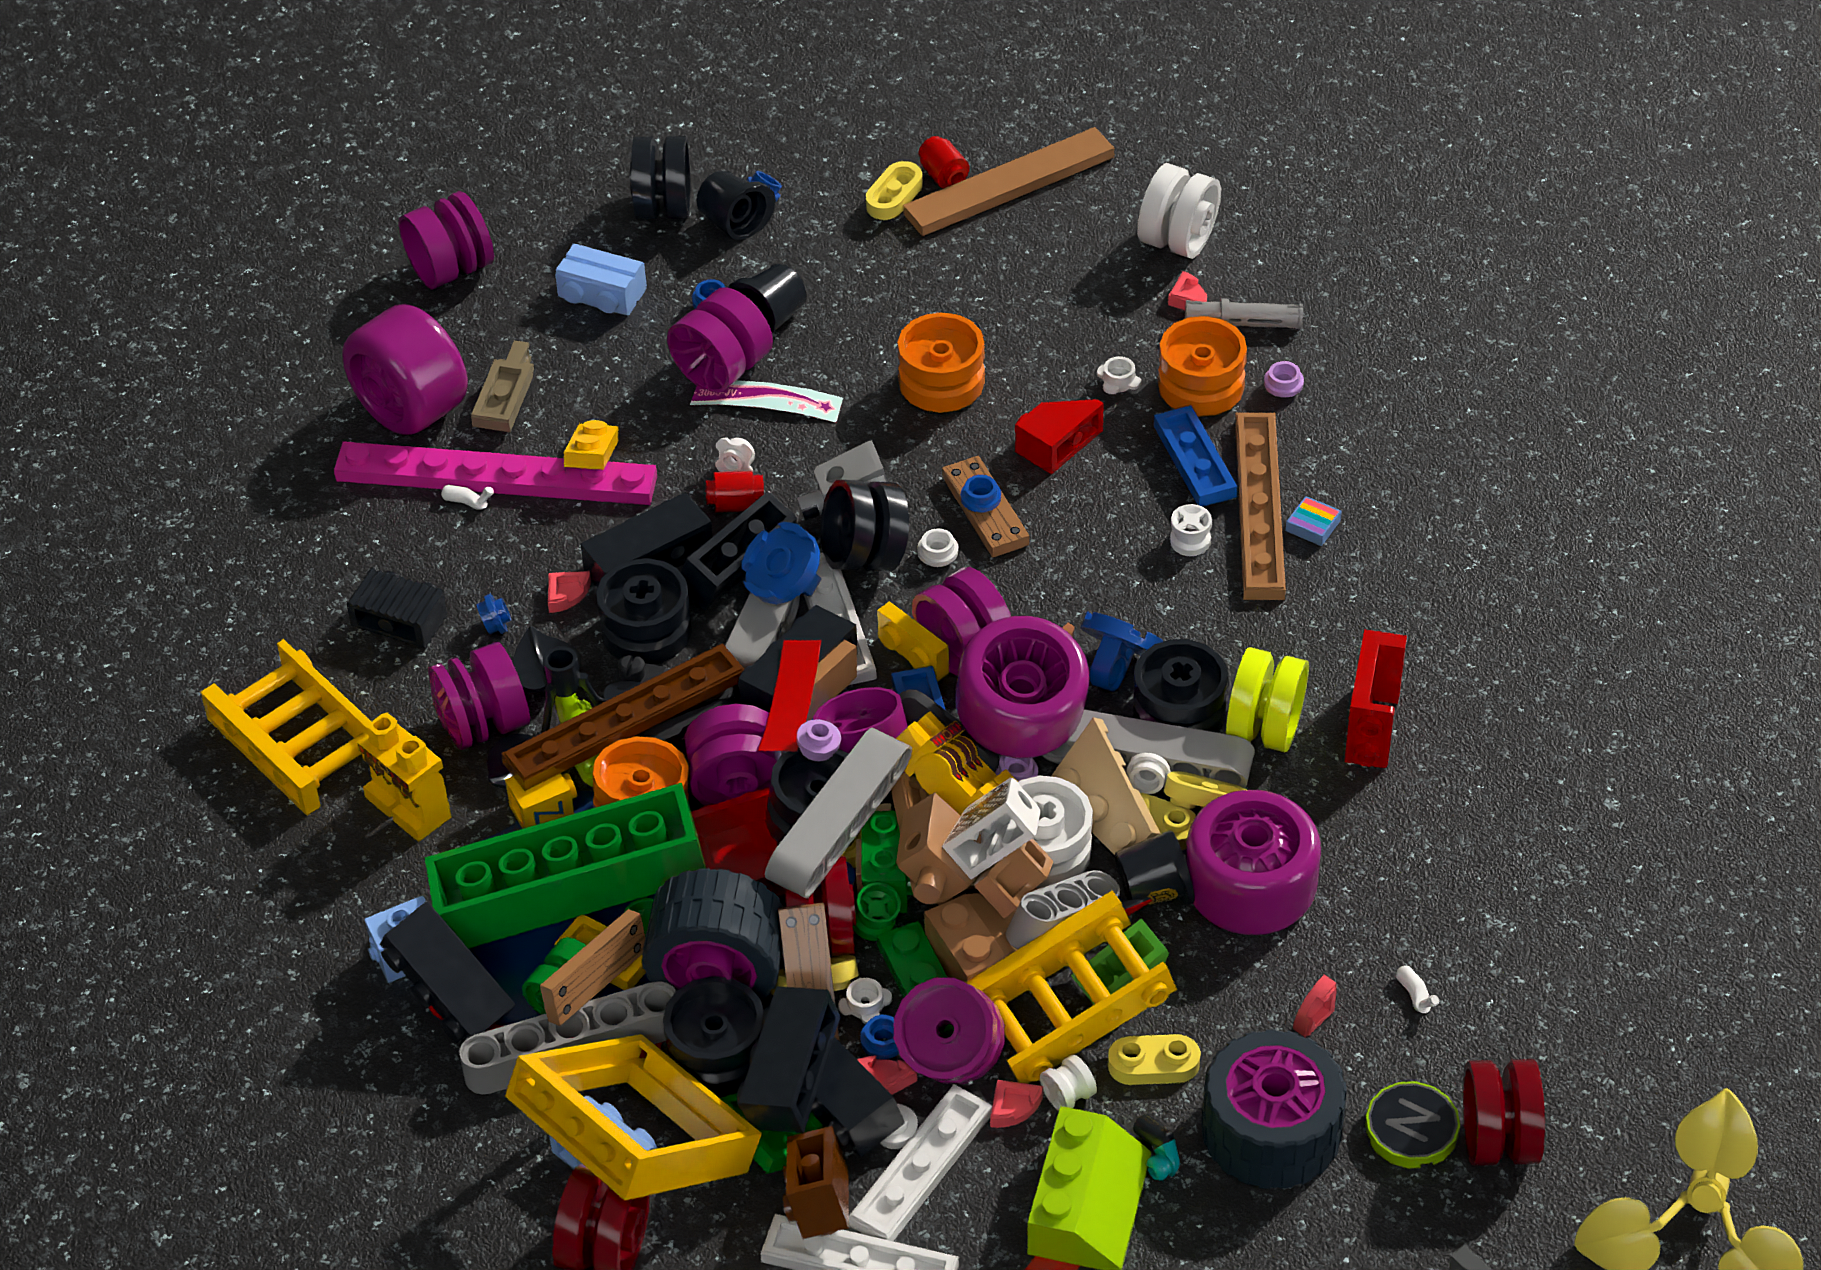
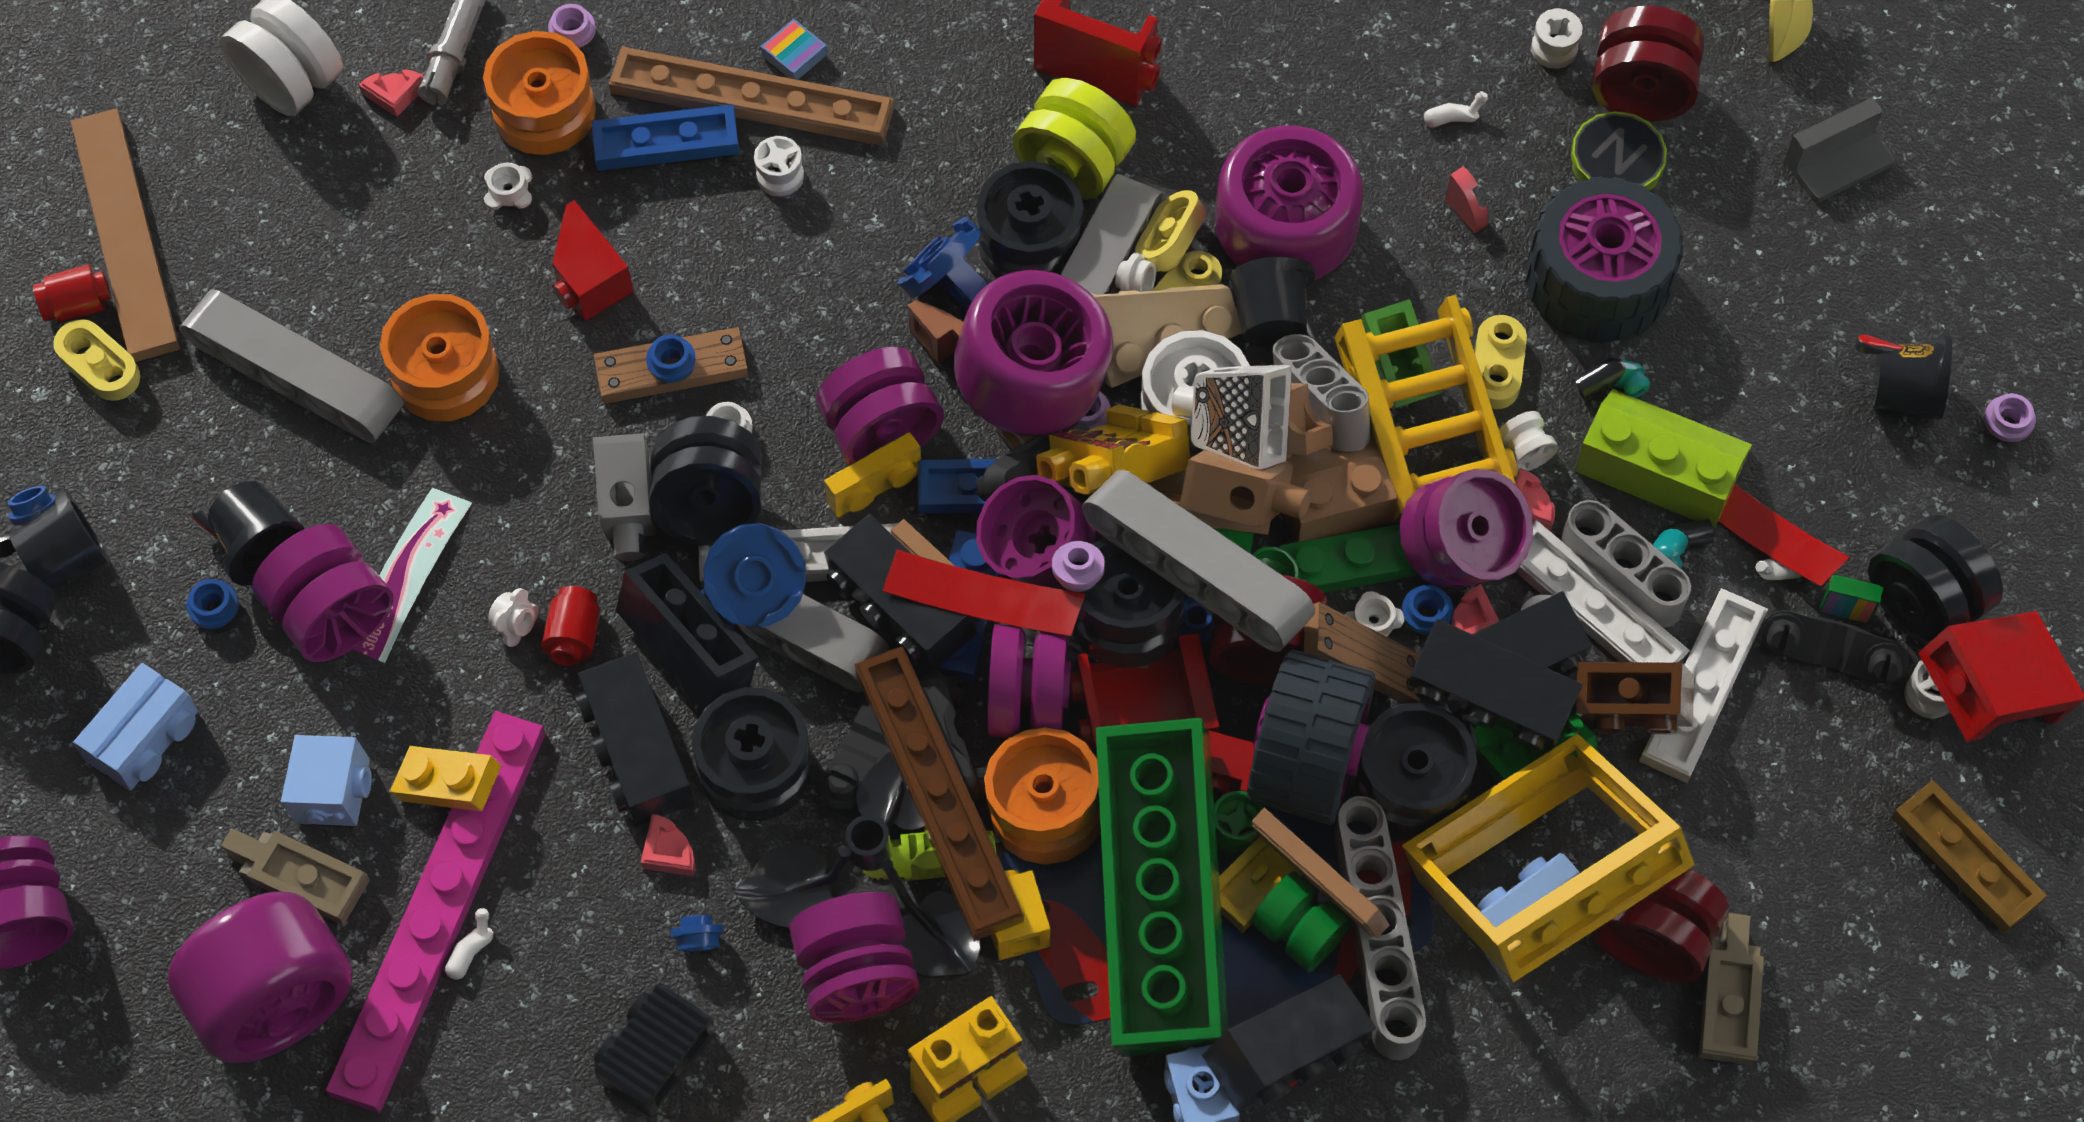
camera: 80 degrees left, 15 degrees up
(577, 384) = (326, 780): none -> light blue head
(918, 284) = (292, 365): none -> light grey beam
(962, 1155) = (1619, 541): none -> light grey beam
(1000, 1215) = (1678, 537): none -> arm
(1529, 1038) = (1561, 49): none -> white wheel

